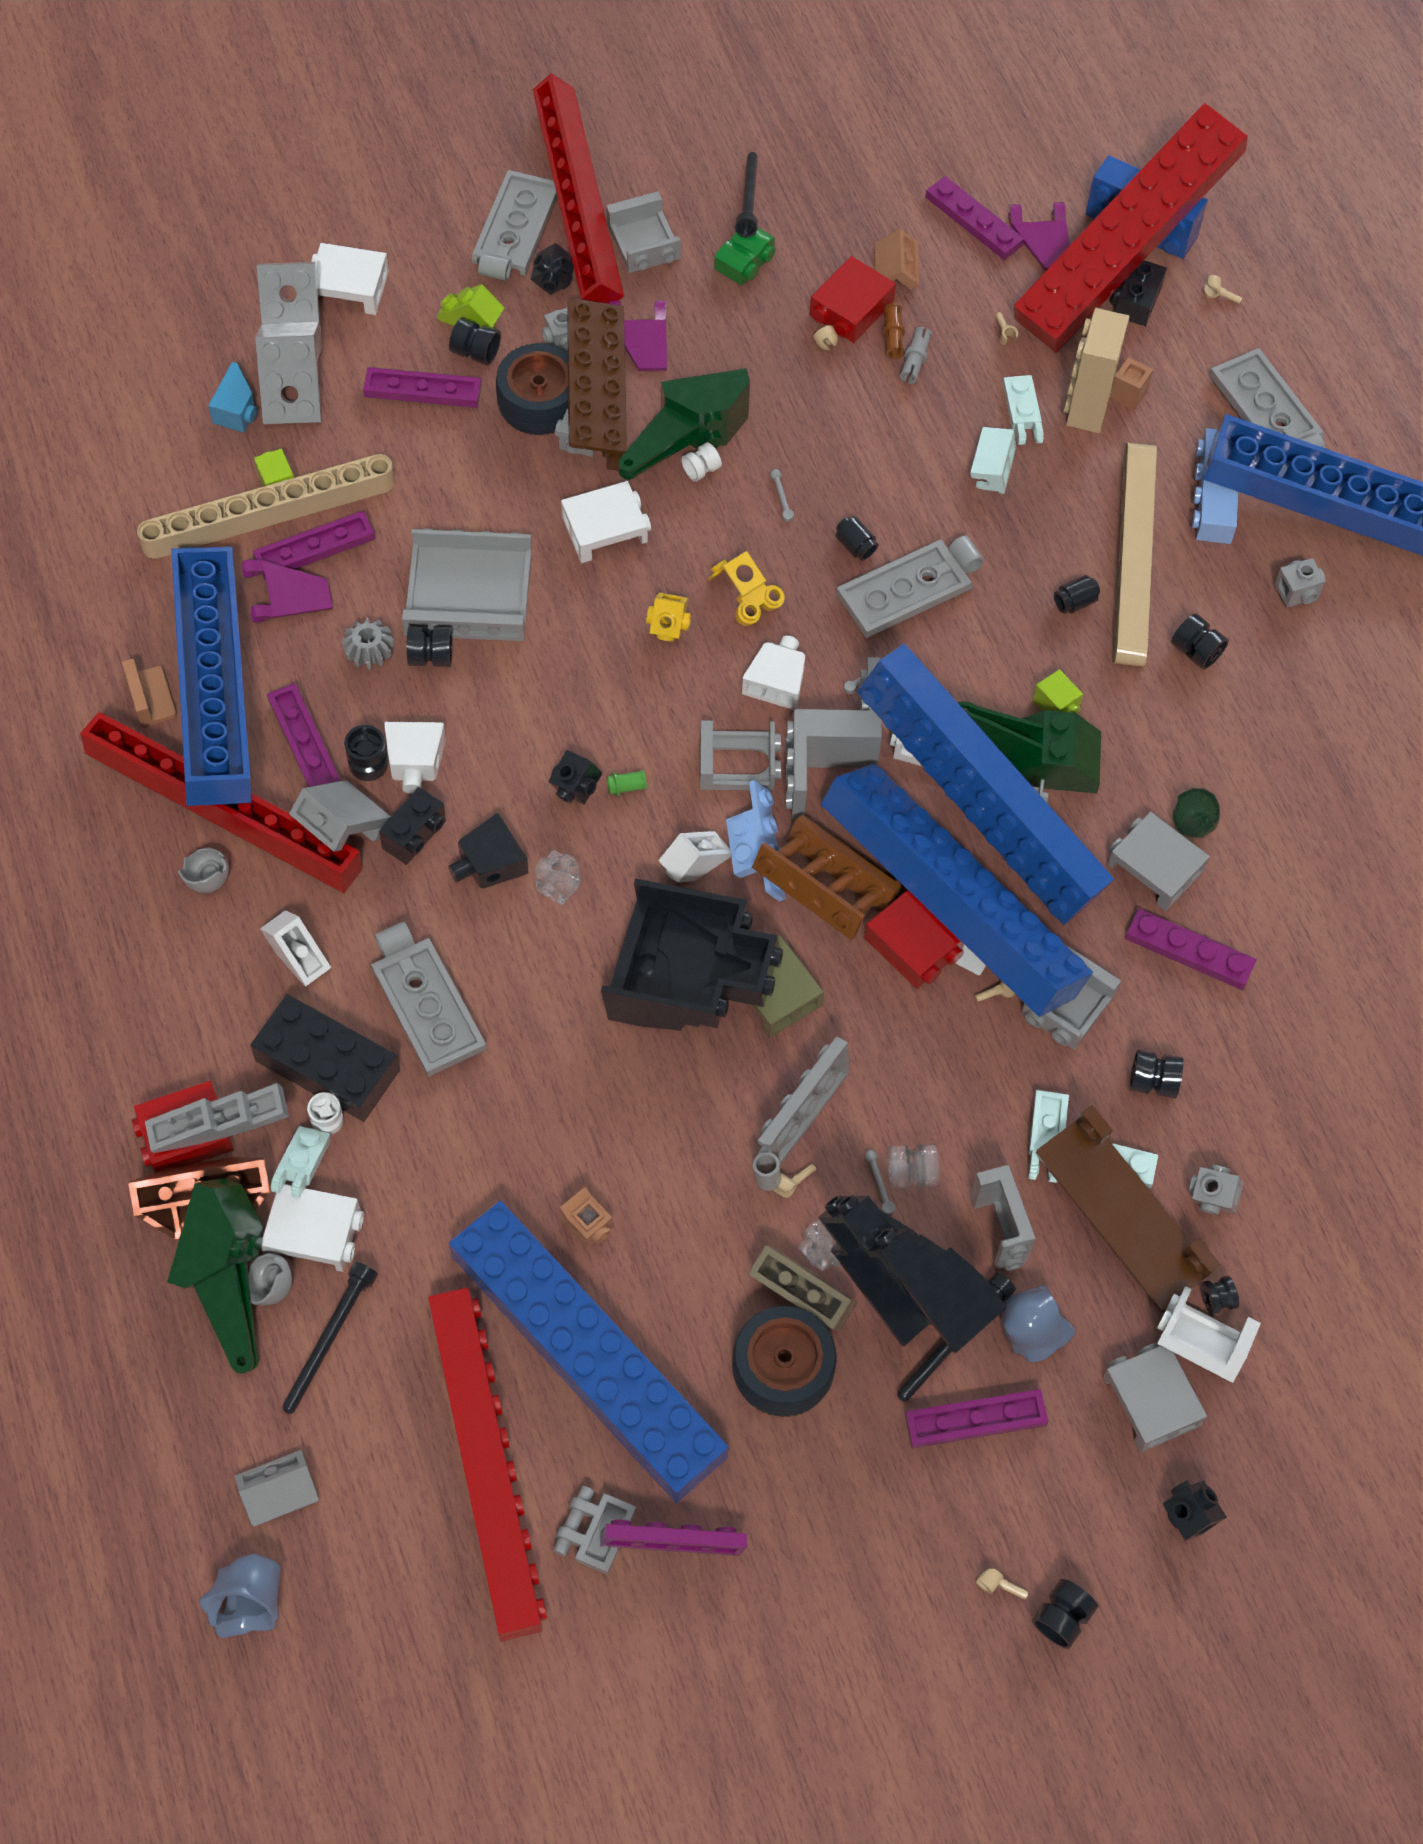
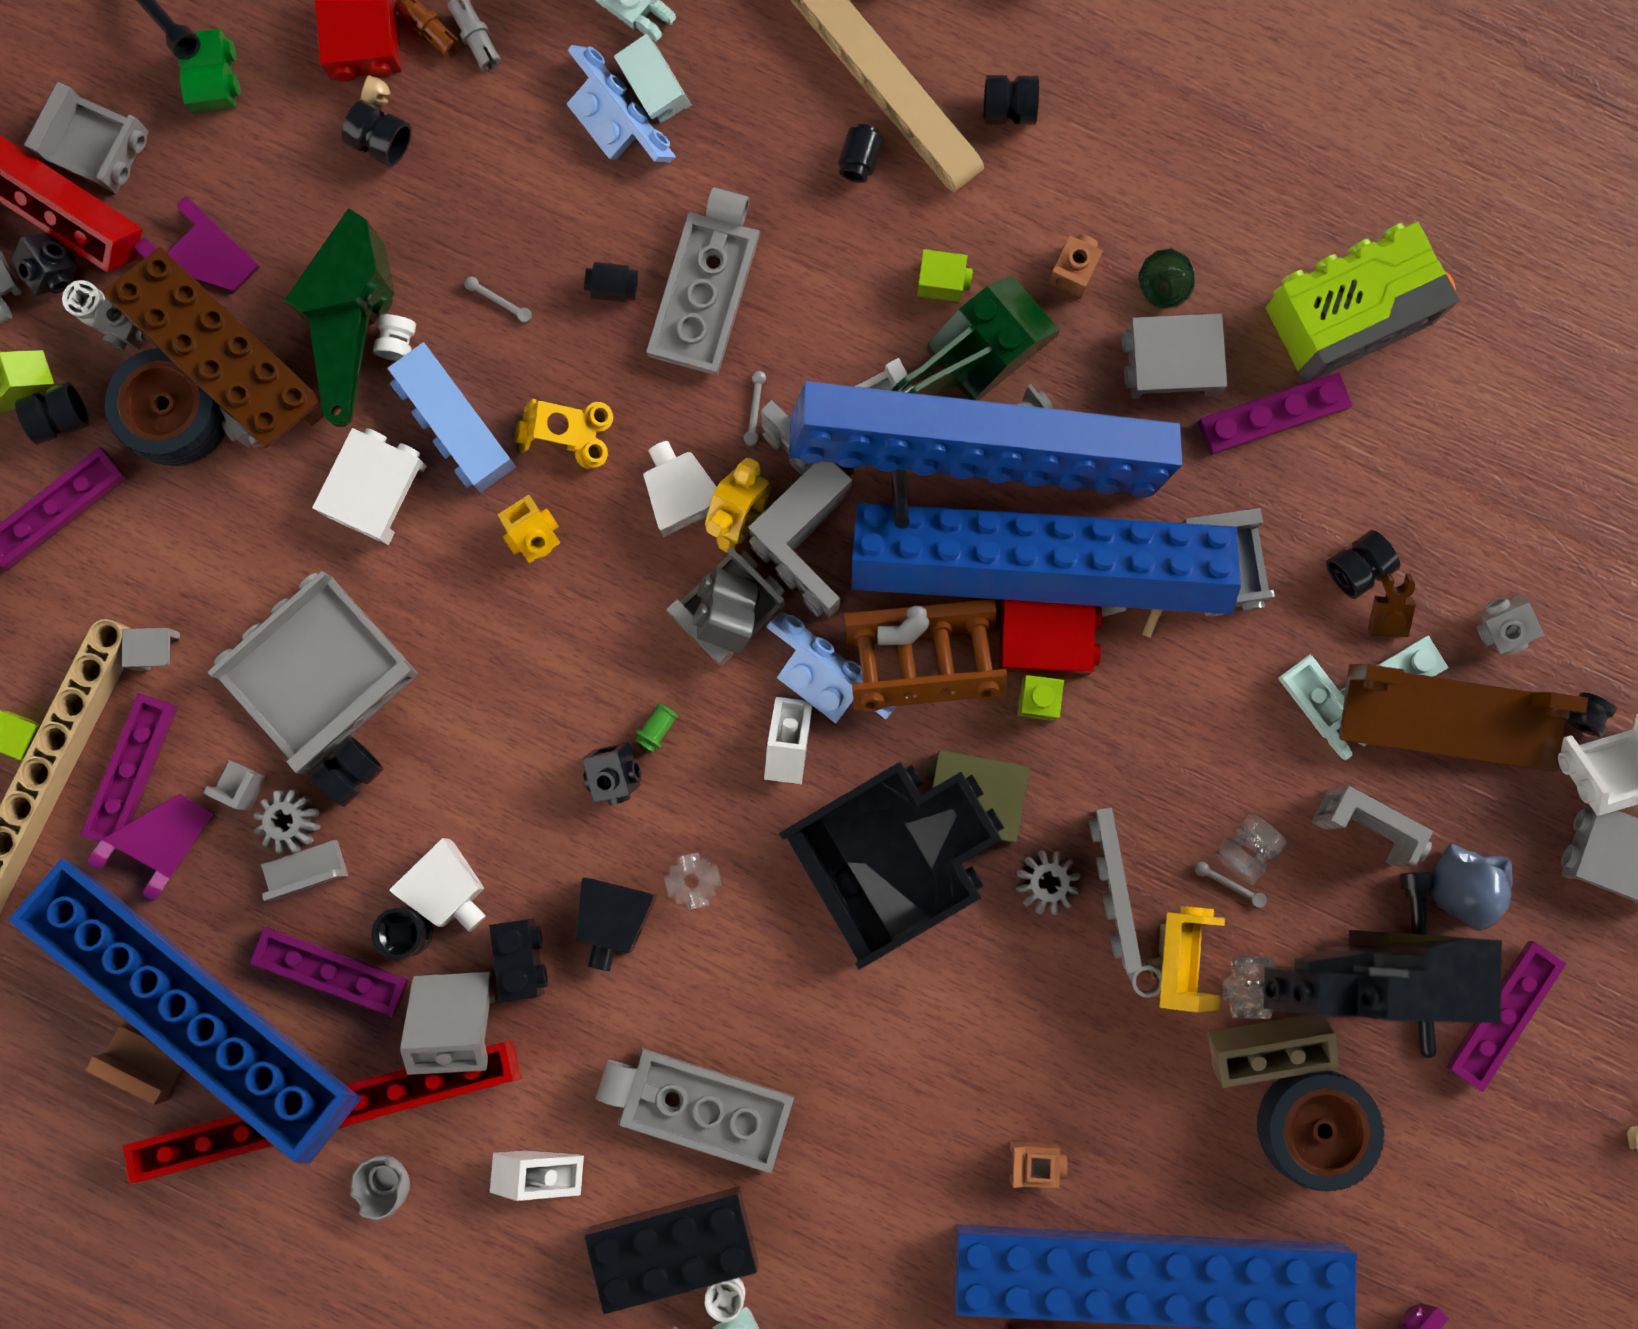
camera: 40 degrees left, 20 degrees up
(347, 679) = (303, 871): none -> light grey panel
(362, 604) = (237, 786): none -> light grey panel
(394, 492) = (147, 647): none -> light grey panel
(551, 300) = (84, 292): none -> white wheel
(688, 527) = (451, 418): none -> light blue brick
(734, 750) = (726, 610): none -> dark grey brick
(763, 1060) = (1053, 870): none -> light grey gear
(795, 693) = (737, 504): none -> yellow piece
(803, 1182) = (1182, 961): none -> yellow panel
(804, 356) = (371, 130): none -> black wheel
(830, 851) = (908, 631): none -> light grey arm
(871, 966) = (1040, 698): none -> lime brick
(903, 777) = (900, 498): none -> black bar
(951, 456) = (610, 113): none -> light blue bracket
(1147, 761) = (1071, 275): none -> nougat brick
(1147, 1118) = (1393, 613): none -> reddish brown plate
(1308, 927) = (1361, 301): none -> lime piece

